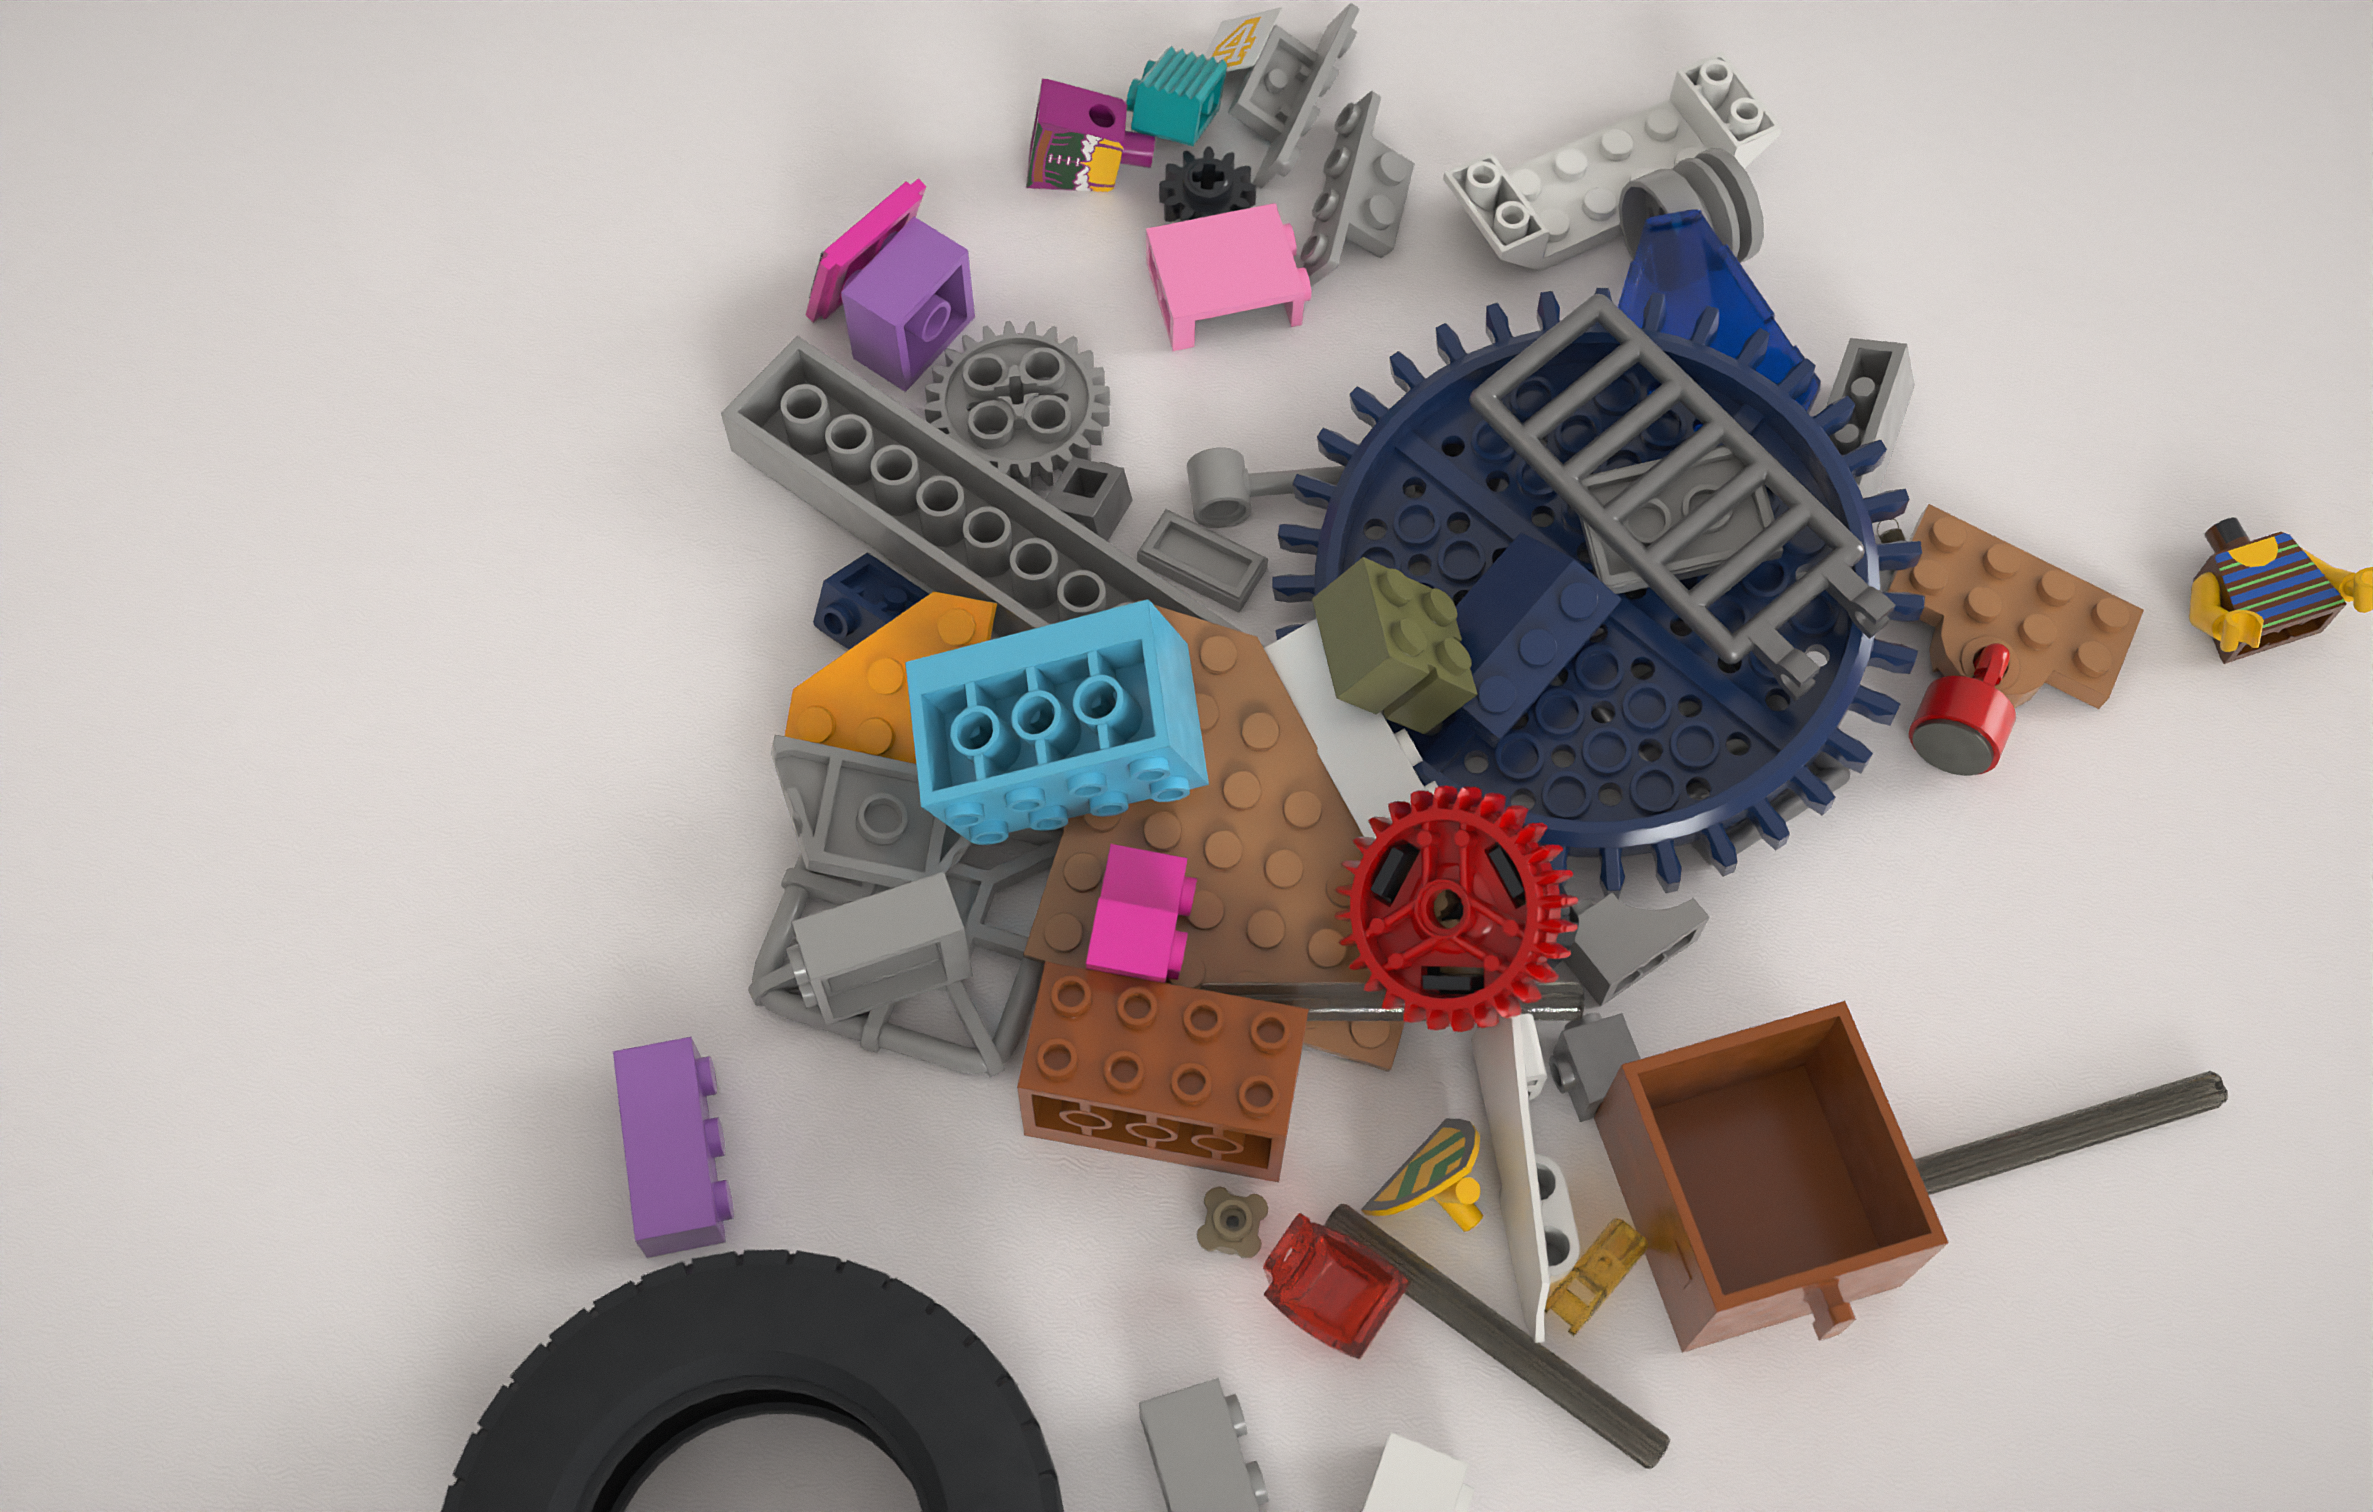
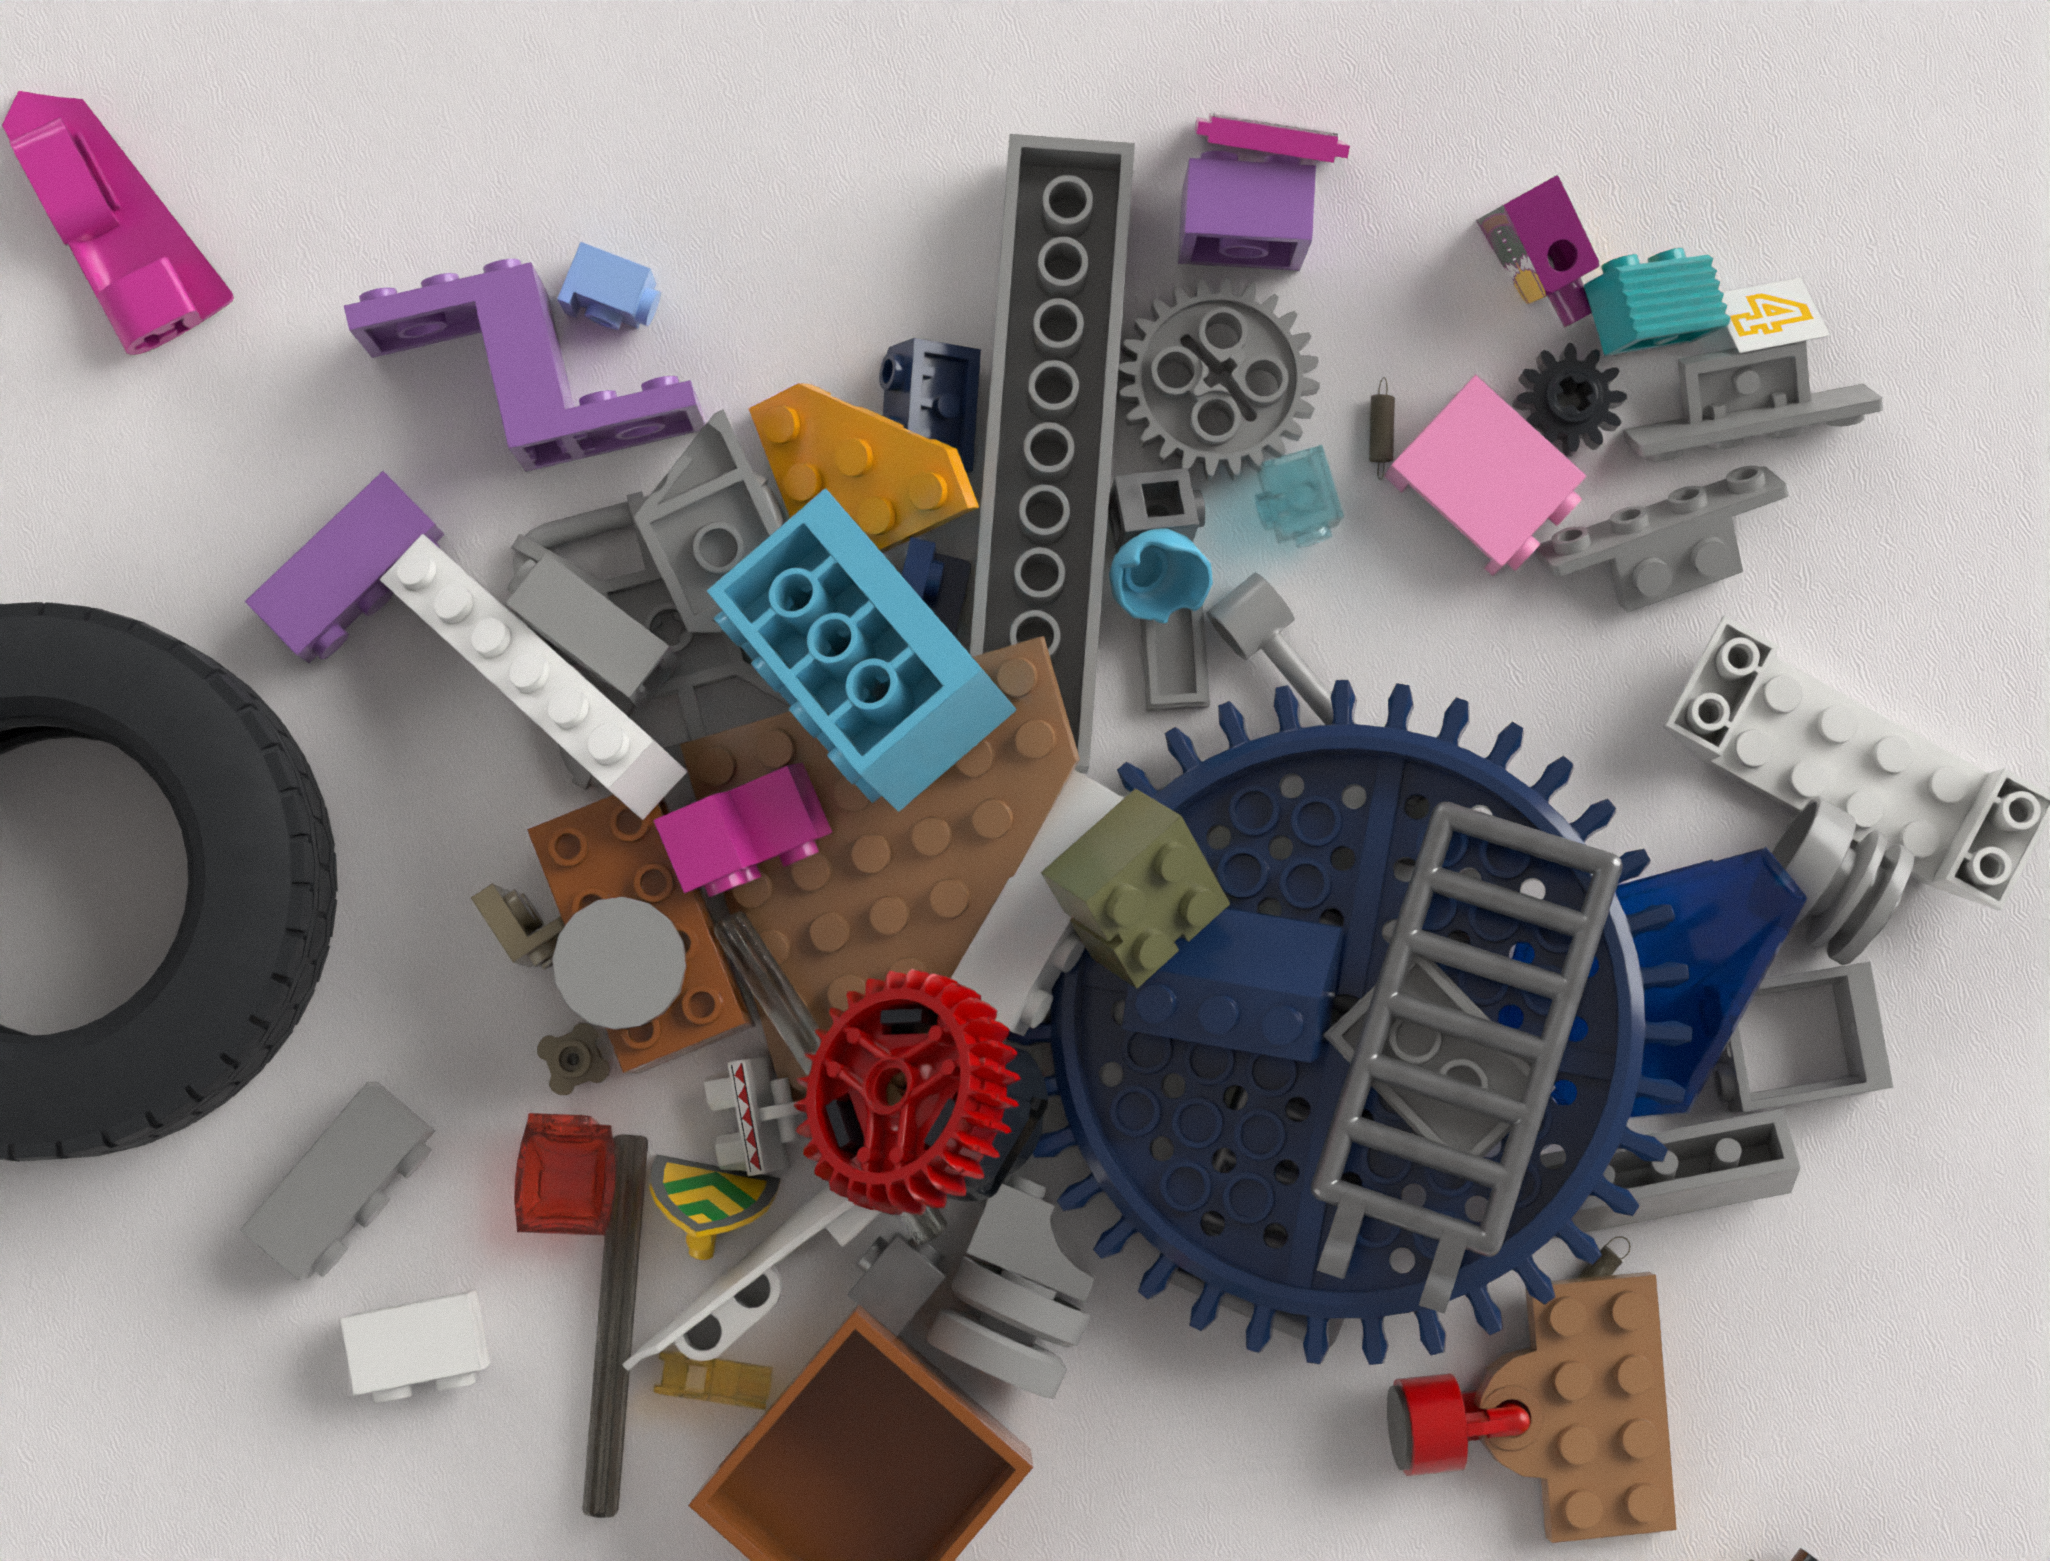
camera: 50 degrees right, 20 degrees up
(239, 1161) = (117, 227): none -> dark pink panel
(603, 789) = (609, 289): none -> light blue brick
(613, 881) = (525, 364): none -> medium lavender bracket
(885, 1012) = (534, 677): none -> white brick
(1088, 1184) = (515, 925): none -> dark tan bracket
(1136, 327) = (1381, 428): none -> dark tan piece
(1144, 515) = (1159, 575): none -> medium azure hair
(1150, 402) = (1298, 497): none -> clear light blue brick
(1191, 1069) = (619, 963): none -> light grey tile
(1408, 1110) = (763, 1116): none -> white hips
(1696, 983) = (1006, 1333): none -> light grey wheel
(1836, 284) = (1860, 1034): none -> light grey window

